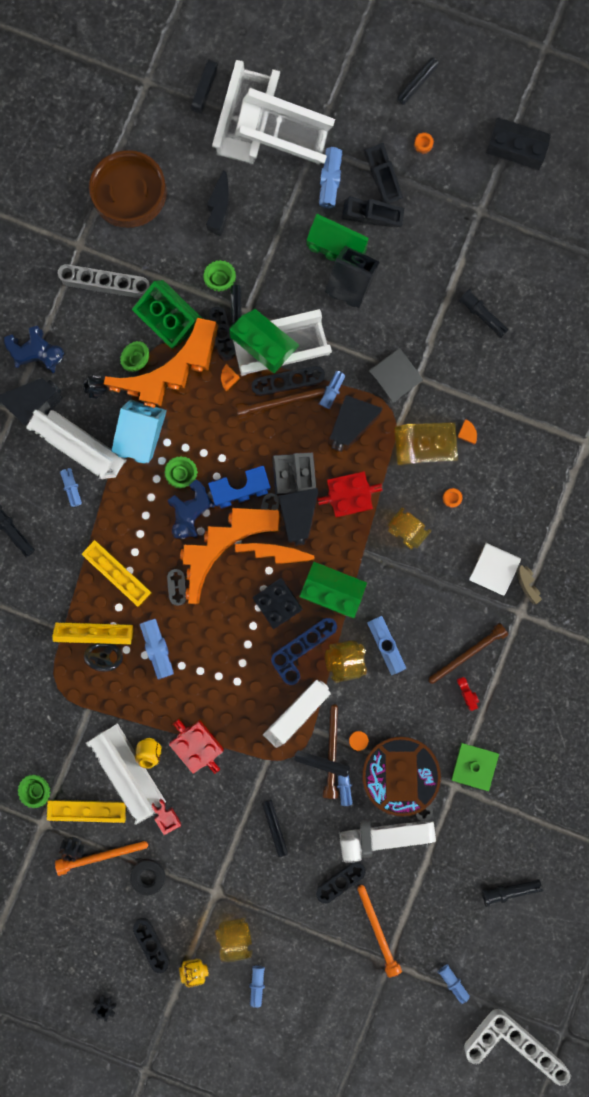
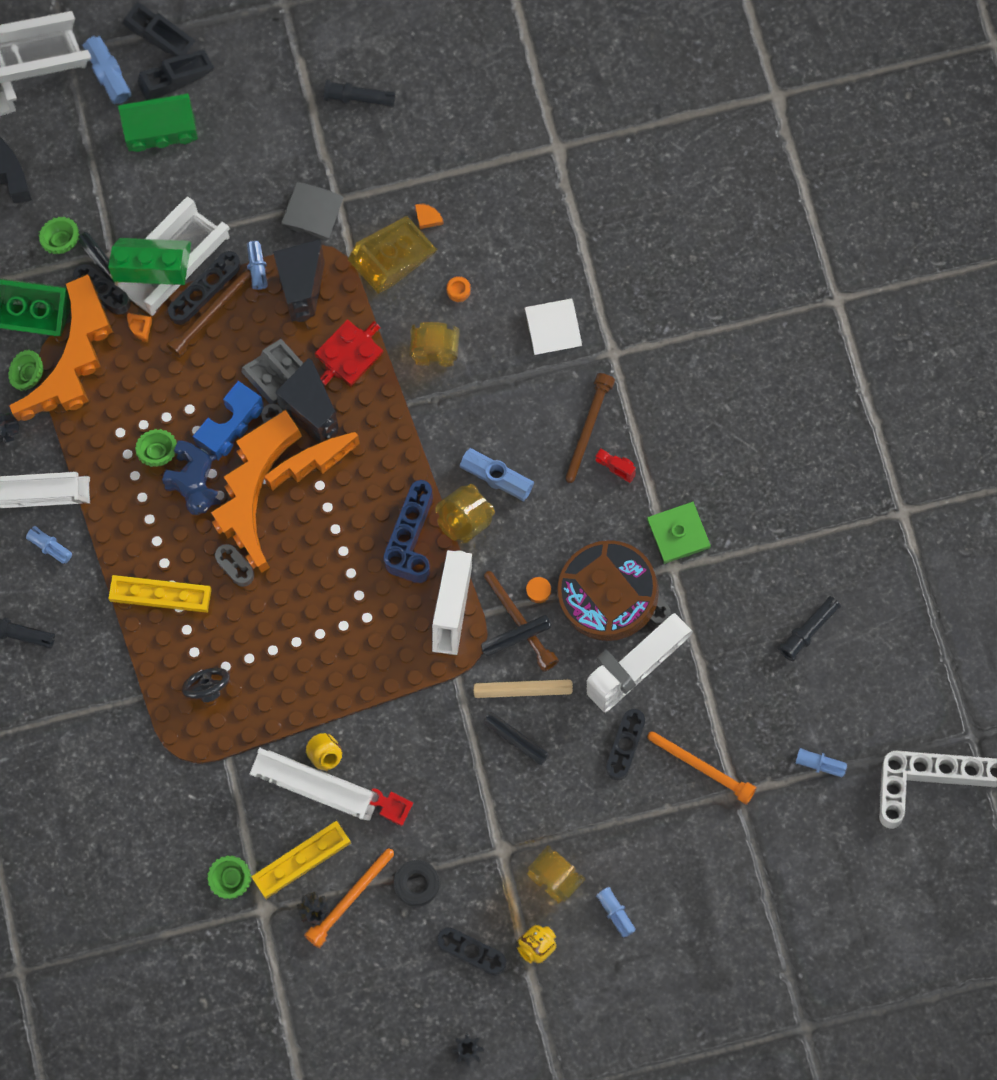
camera: 30 degrees left, 15 degrees down
(92, 633) = (172, 673): yellow plate -> none
(138, 431) = (83, 438): medium azure slope -> none
(156, 648) = (257, 639): medium blue piece -> none
(196, 746) = (371, 711): plate -> none
(277, 603) = (352, 507): black hinge -> none
(302, 799) = (523, 688): none -> tan axle
(333, 590) = (401, 458): green slope -> none
(345, 790) = (559, 646): medium blue axle -> none
(351, 276) = (198, 145): black slope -> none
(525, 579) = (590, 314): dark tan slope -> none

